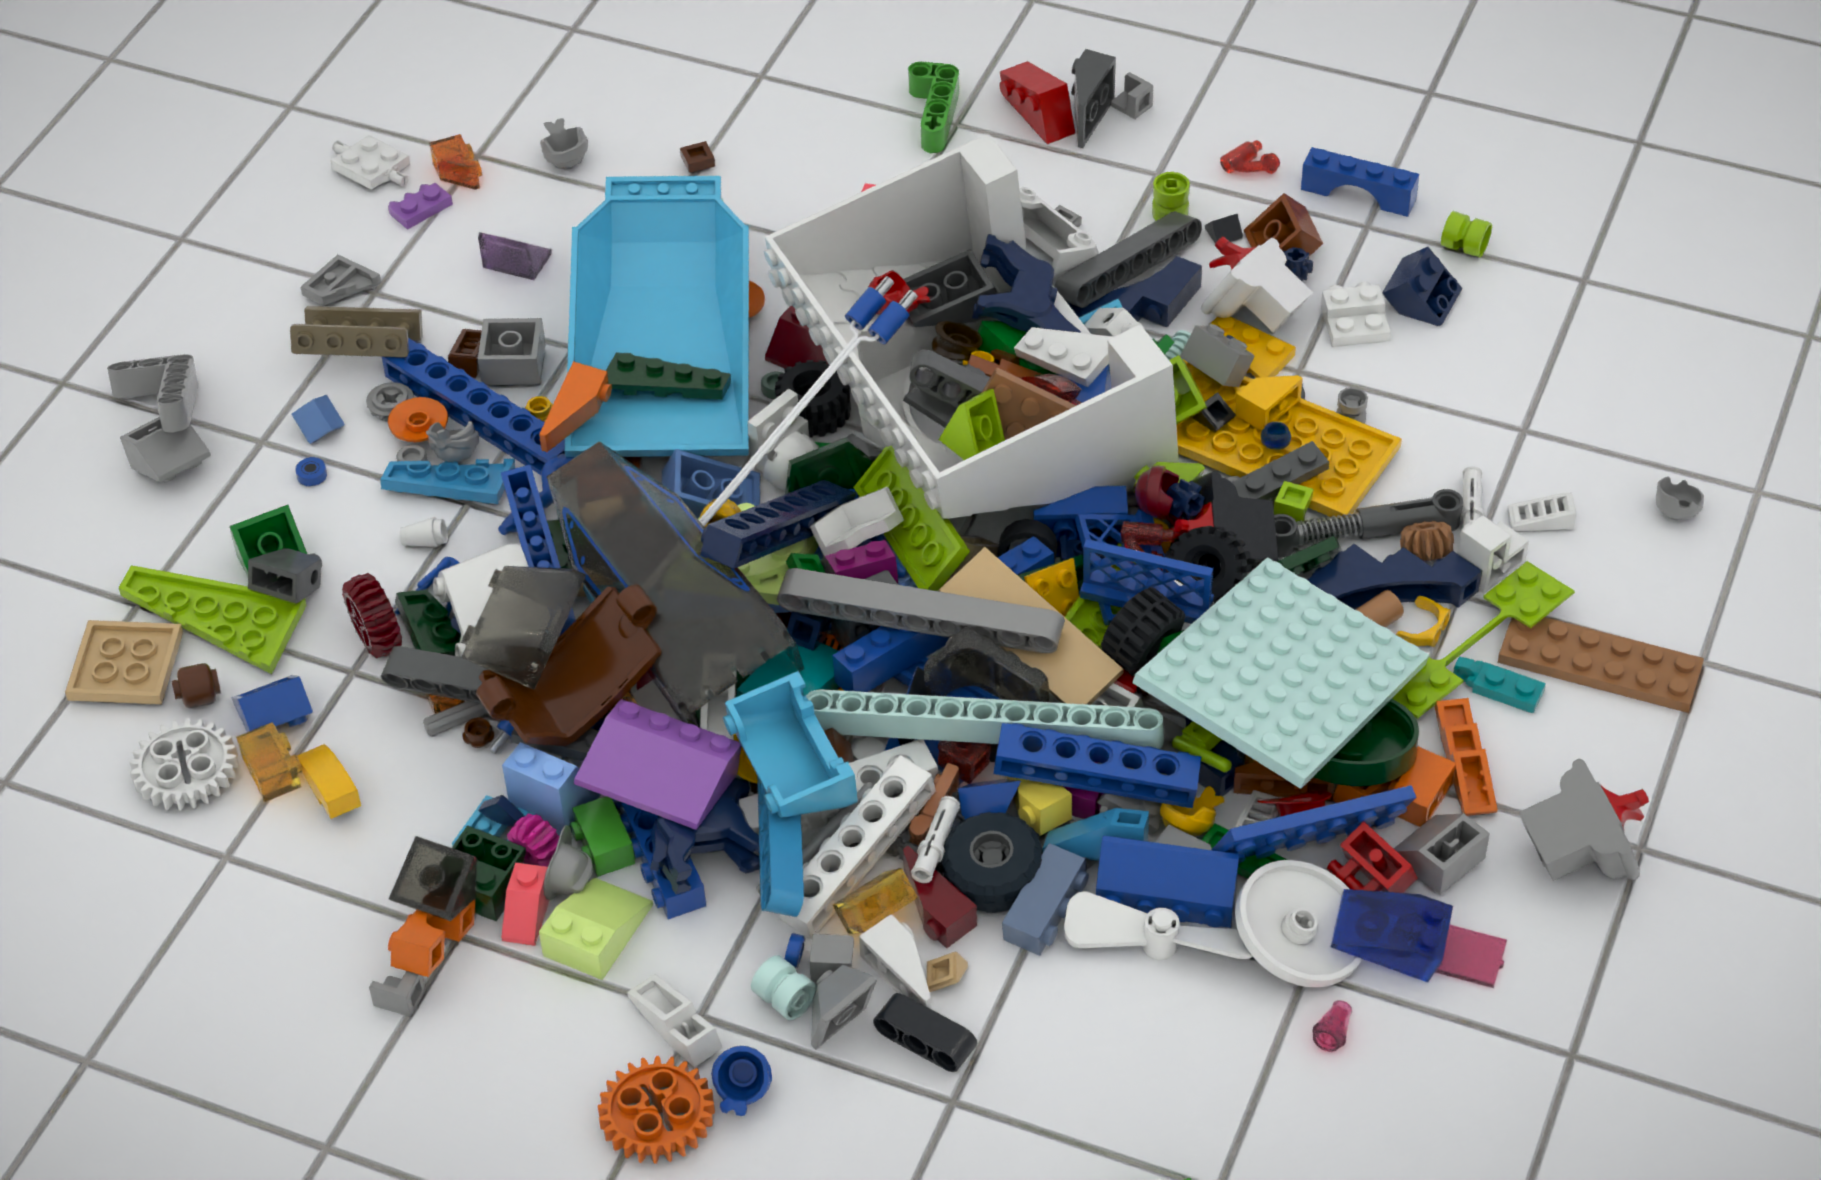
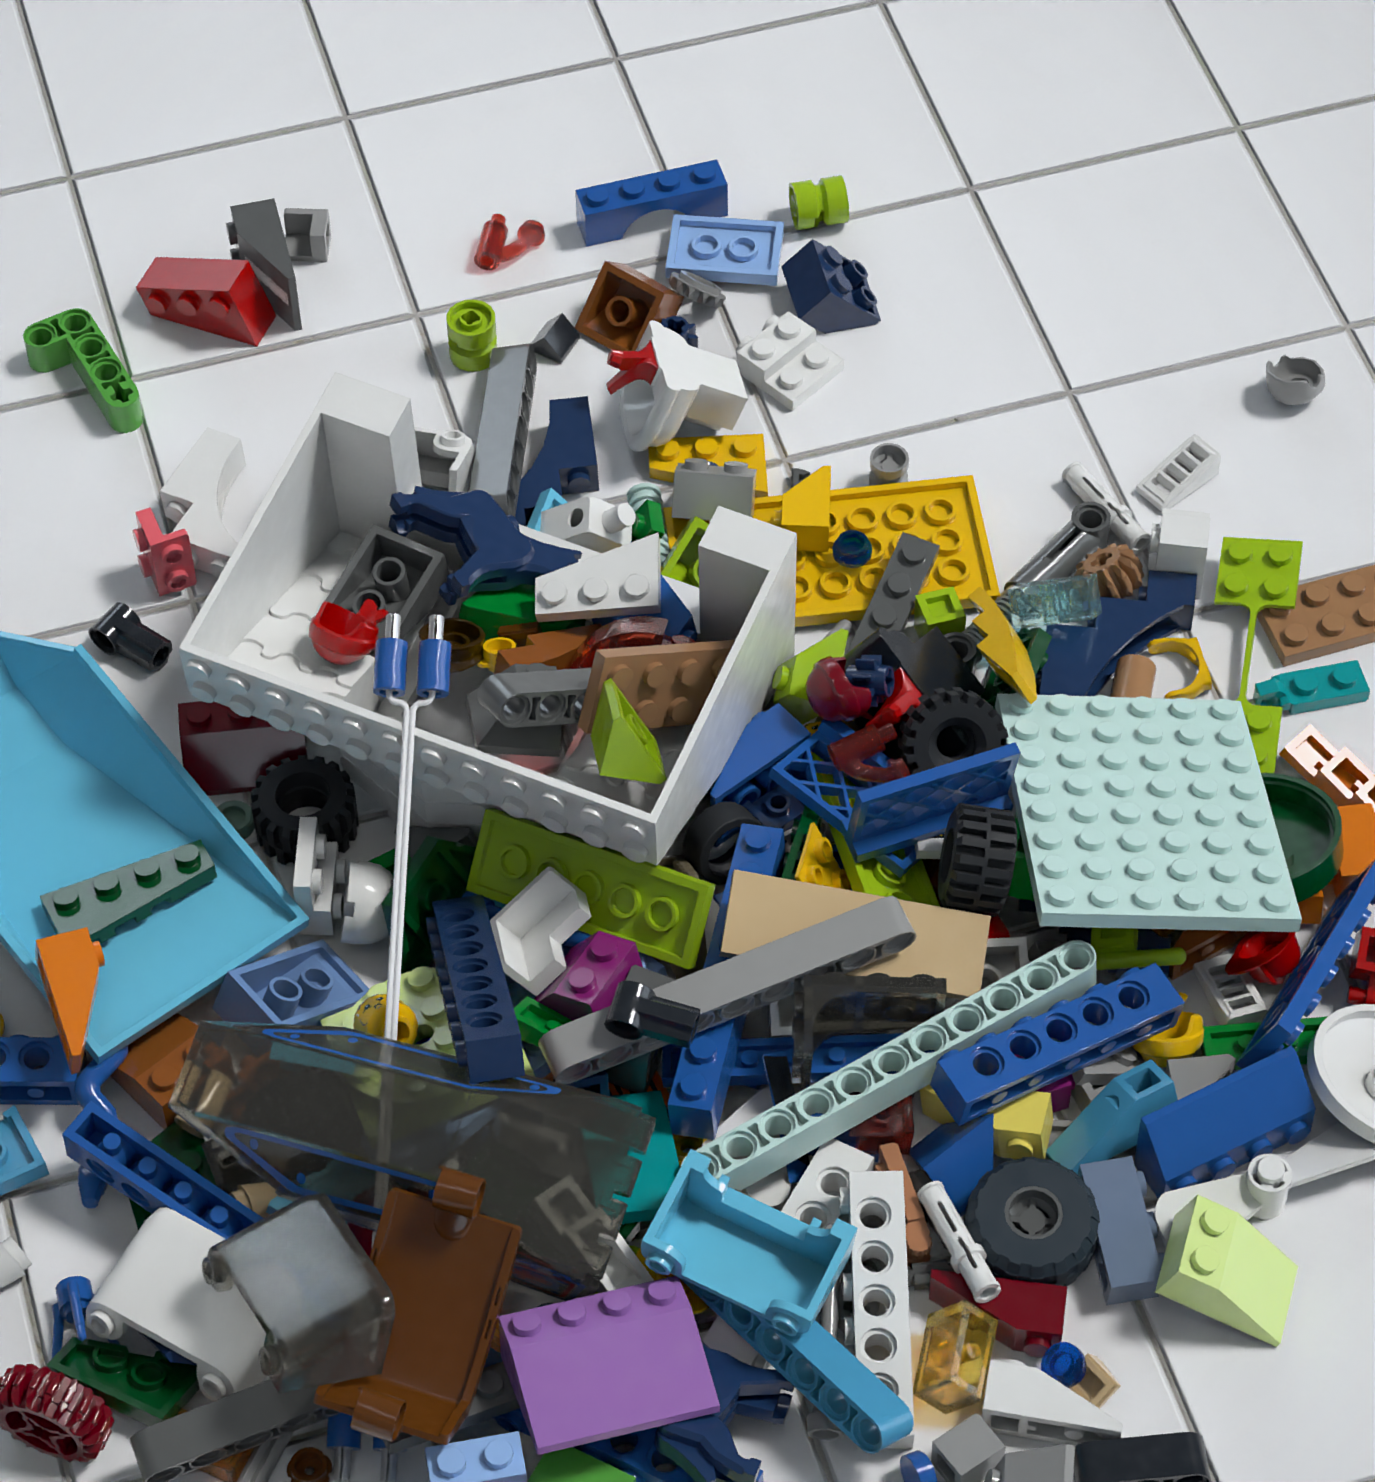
camera: 40 degrees left, 5 degrees up
(847, 586) = (641, 1013): none -> black piece
(935, 949) = (1064, 1363): none -> clear blue plate
(1083, 961) = (1227, 1270): none -> yellowish green slope
(1297, 532) = (1003, 646): none -> yellow slope
(1336, 243) = (697, 288): none -> light grey gear
(1365, 530) = (1055, 601): none -> clear light blue brick
(1380, 231) = (726, 249): none -> light blue plate

